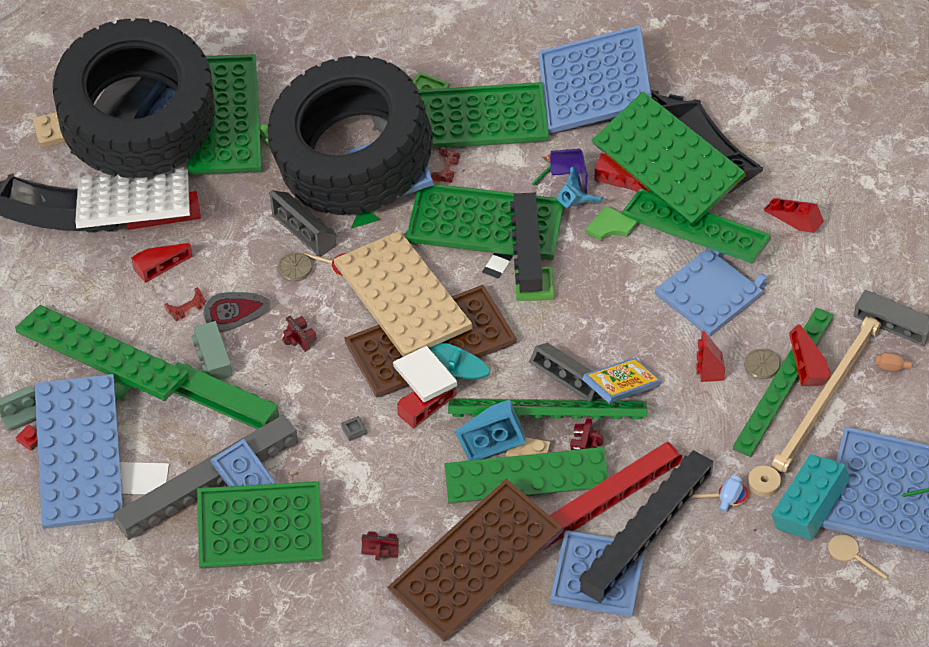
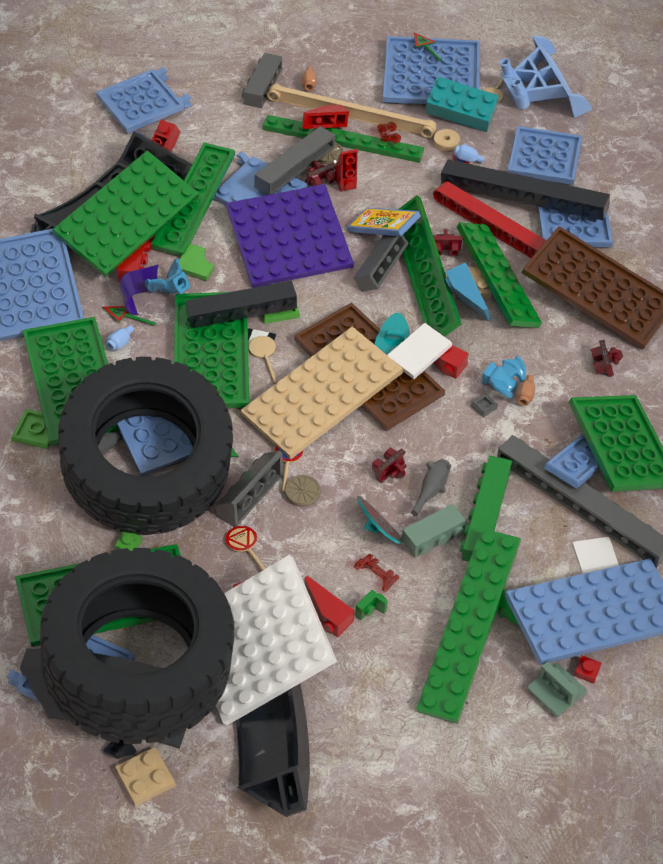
camera: 105 degrees left, 0 degrees up
(151, 290) = (369, 603): none -> green bracket
(254, 217) = (243, 539): none -> piece
(267, 362) = (432, 483): none -> dark grey piece
(357, 463) = (526, 391): none -> nougat plant
(377, 442) = (501, 377): none -> dark azure animal
(479, 264) = (263, 348): none -> tan piece
(517, 153) = (119, 338): none -> light blue plant
(628, 303) = (289, 235): none -> dark purple plate
(716, 572) = (545, 155): none -> medium blue plate
(727, 341) = (319, 172): none -> dark red hips
(736, 317) = (294, 161): none -> dark grey brick
(762, 197) = (139, 144): none -> black slope
(770, 415) = (385, 130): none -> clear red piece
(850, 596) = (537, 88): none -> light blue piece
(875, 206) = (142, 100): none -> medium blue plate

